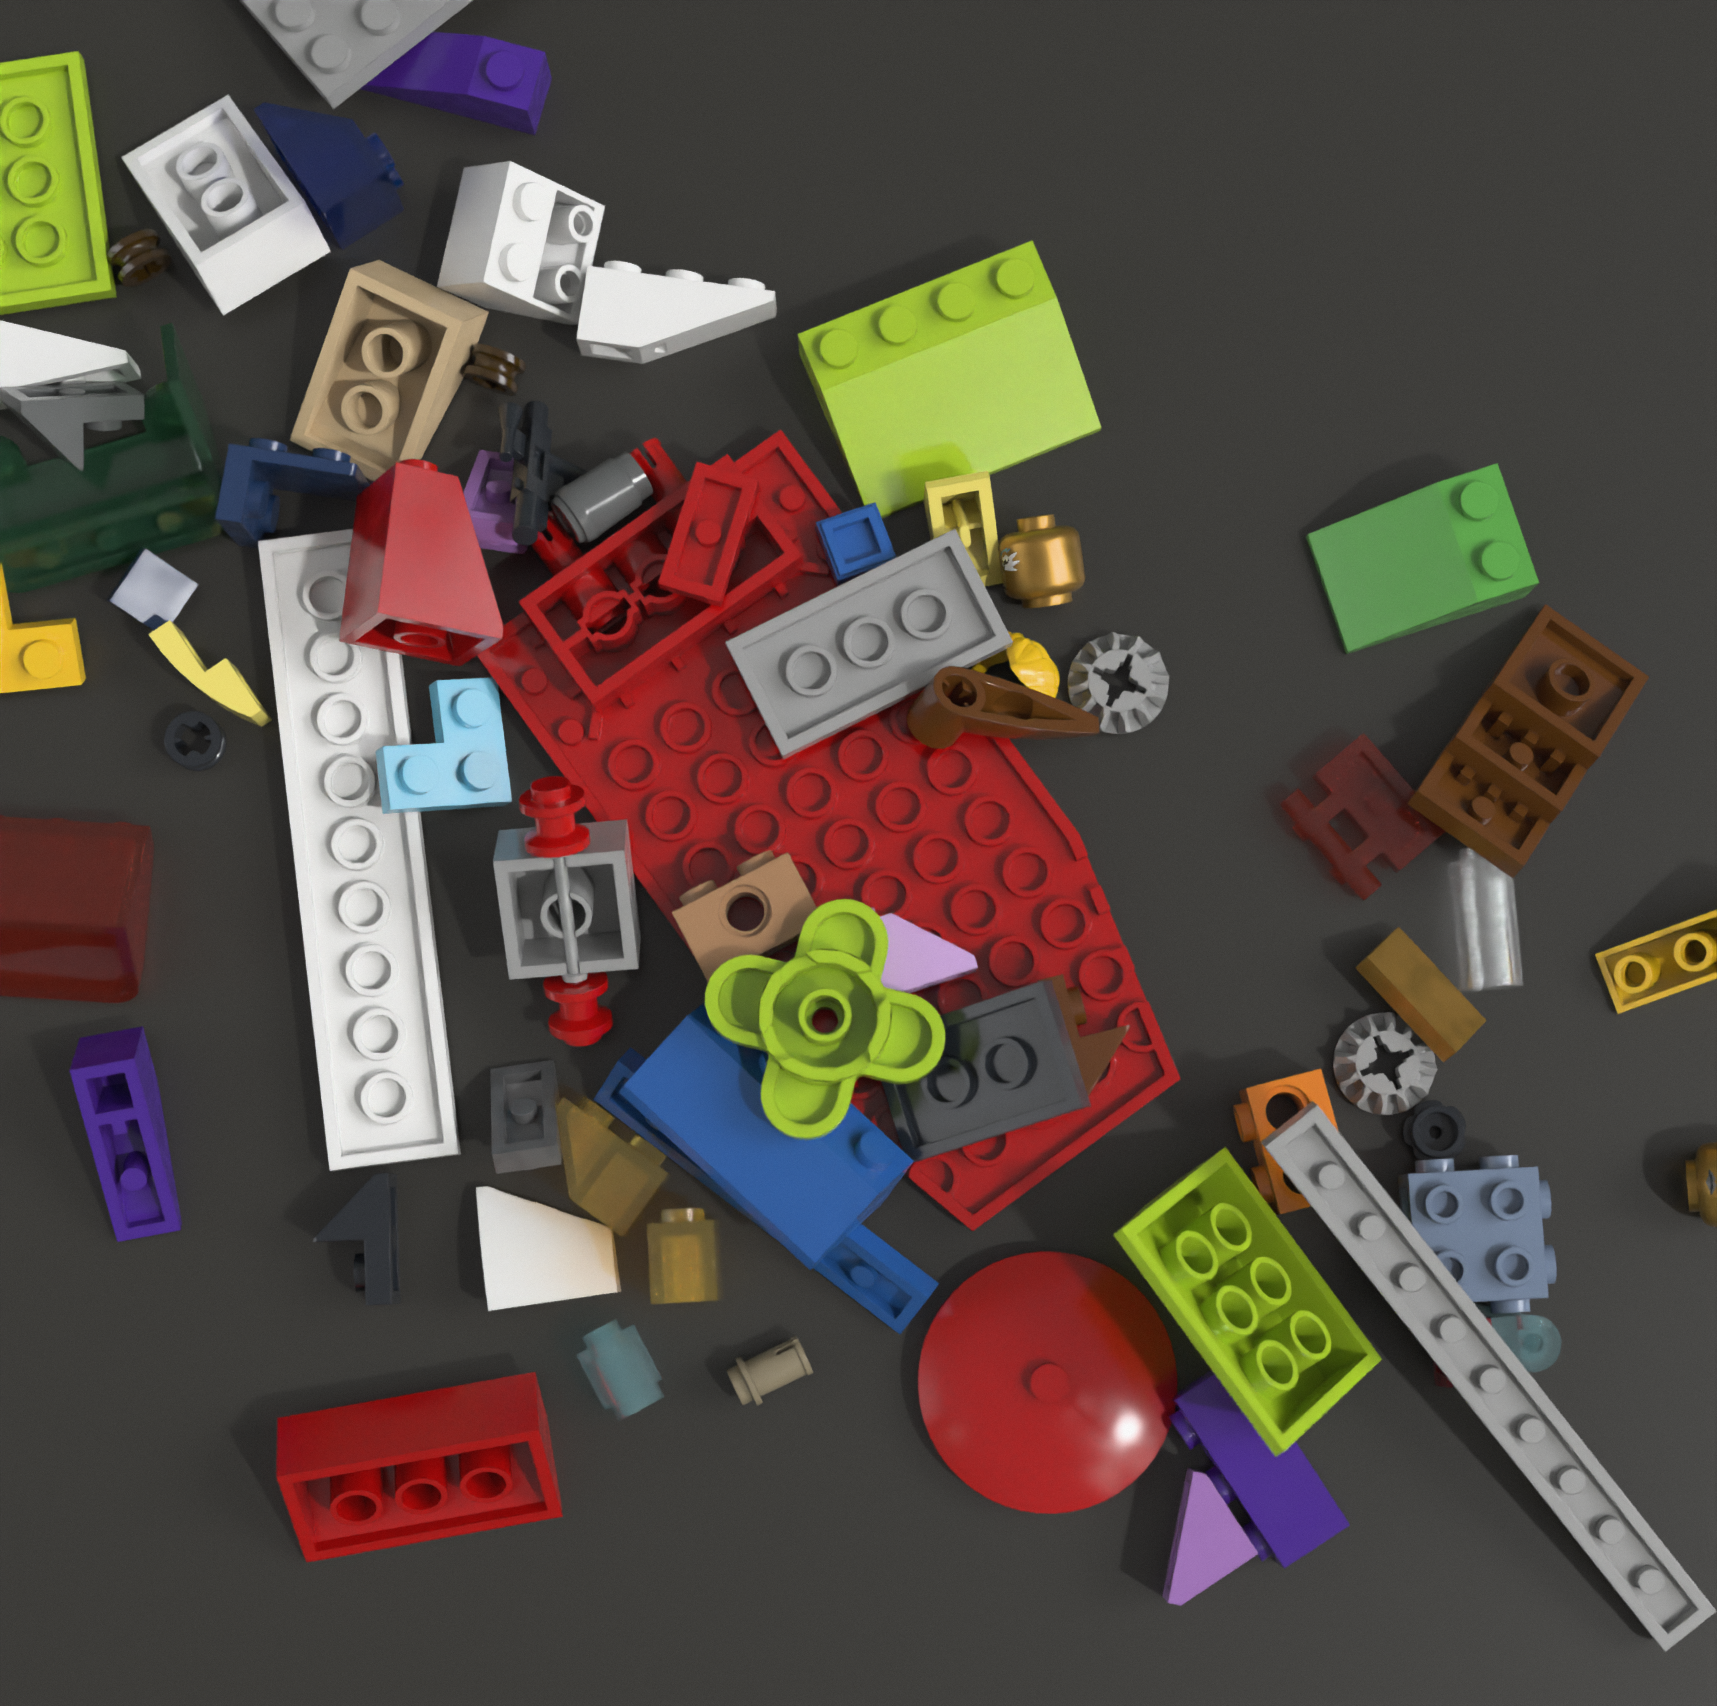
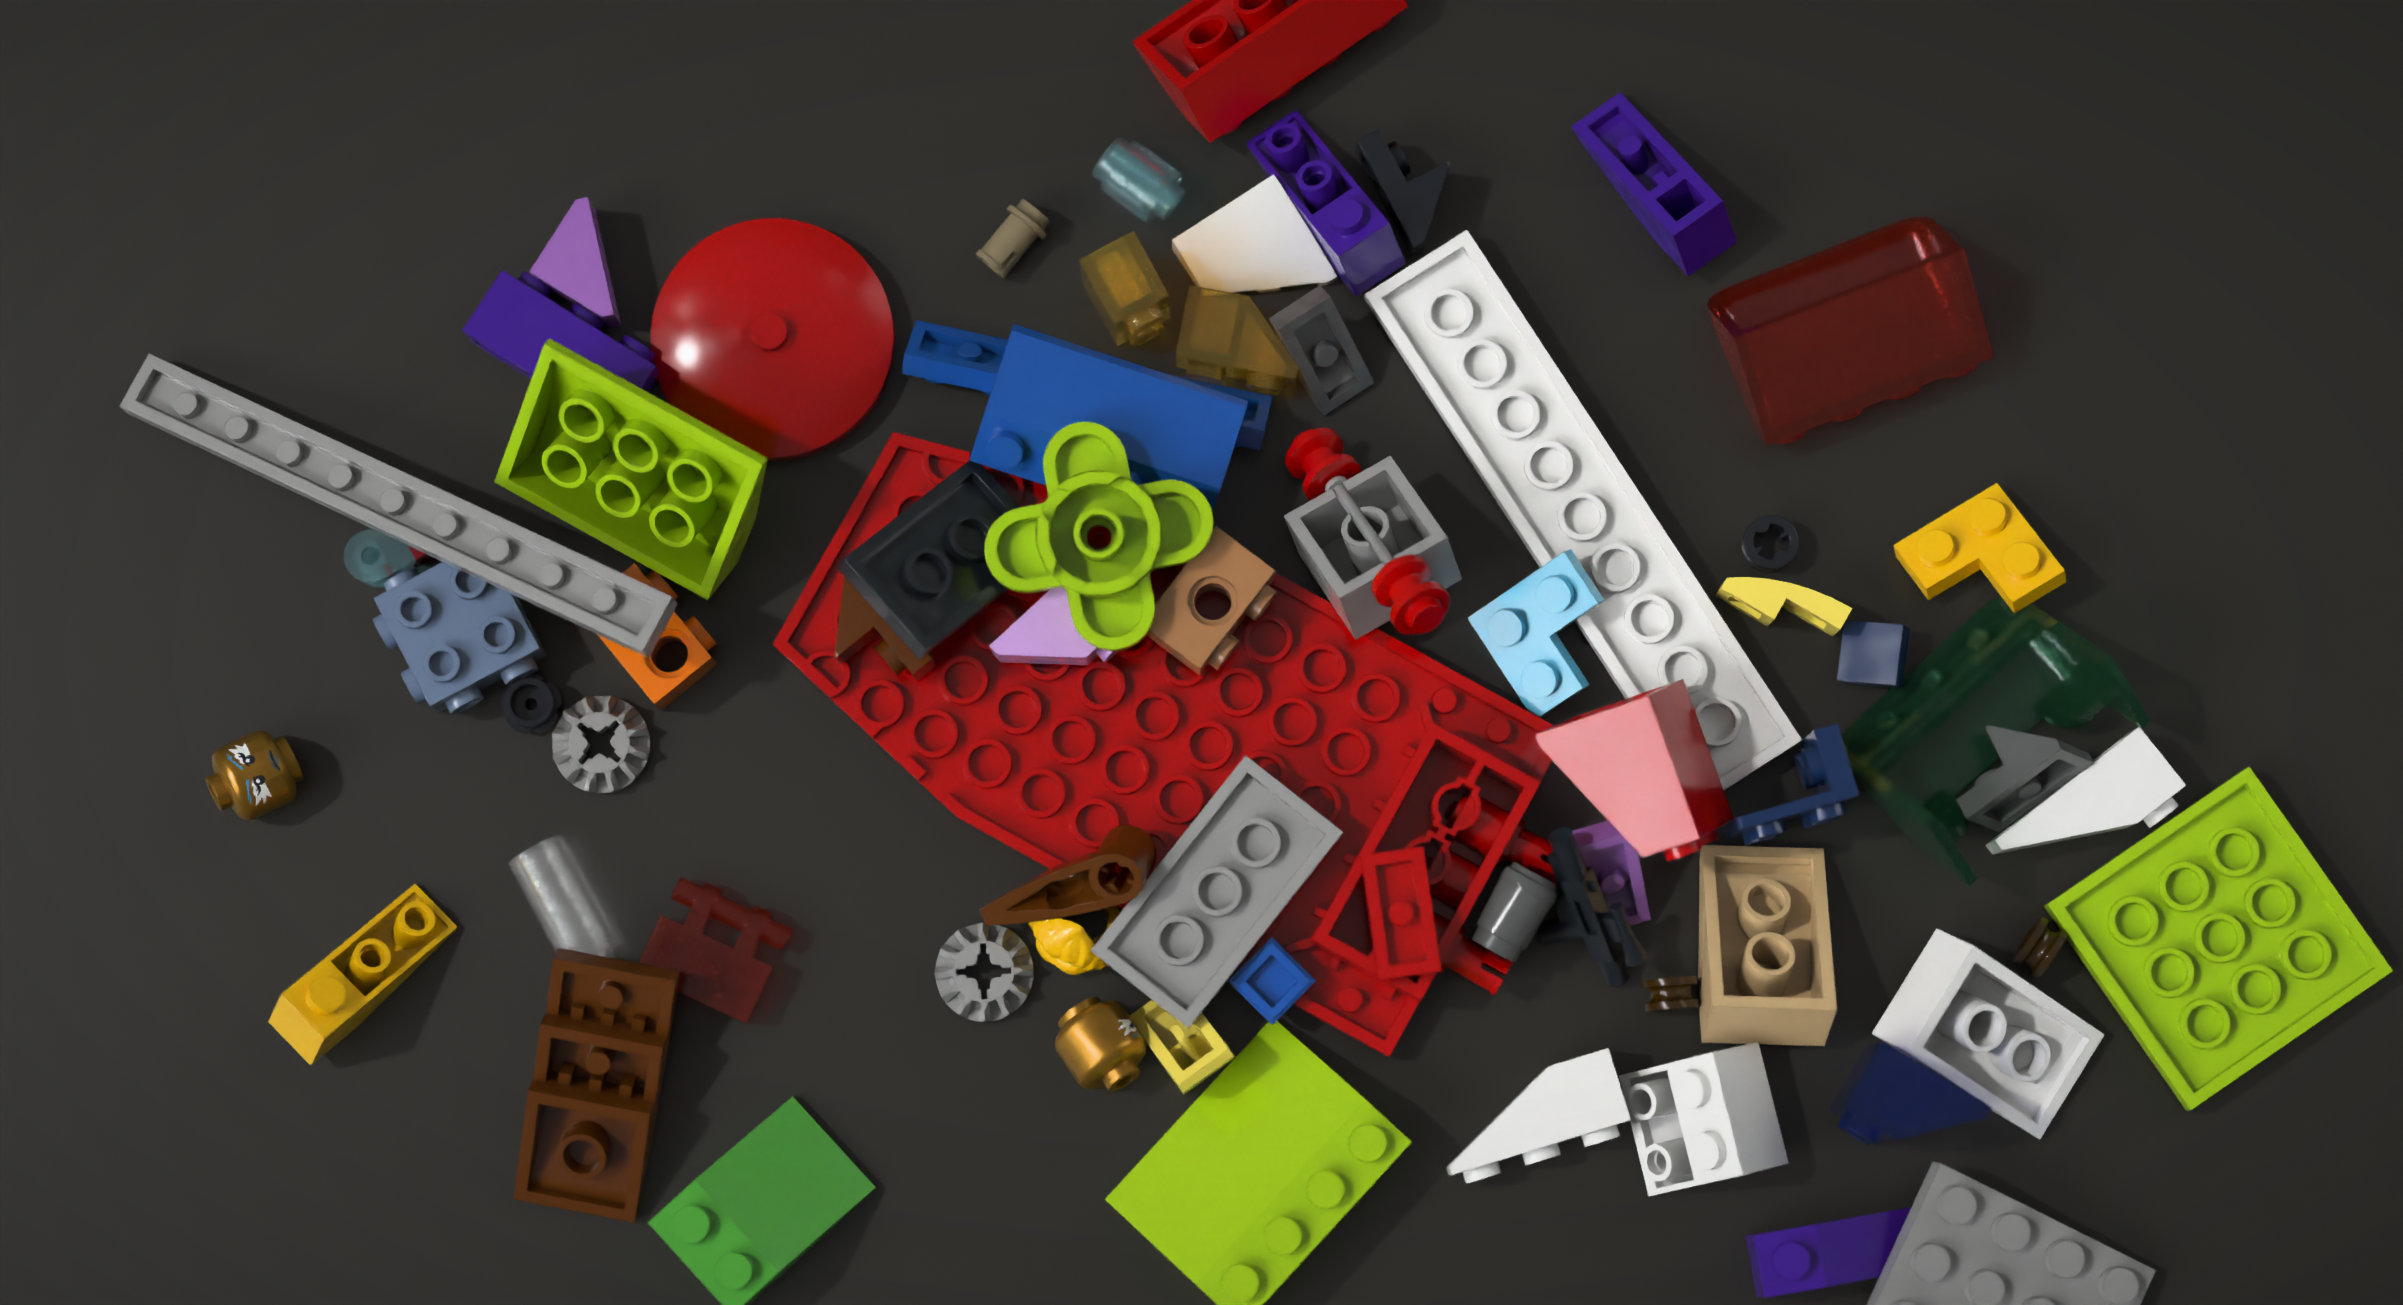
camera: 155 degrees right, 0 degrees up
(448, 1265) = (1330, 202): none -> dark purple slope
(1421, 994) = (595, 816): pearl gold tile -> none

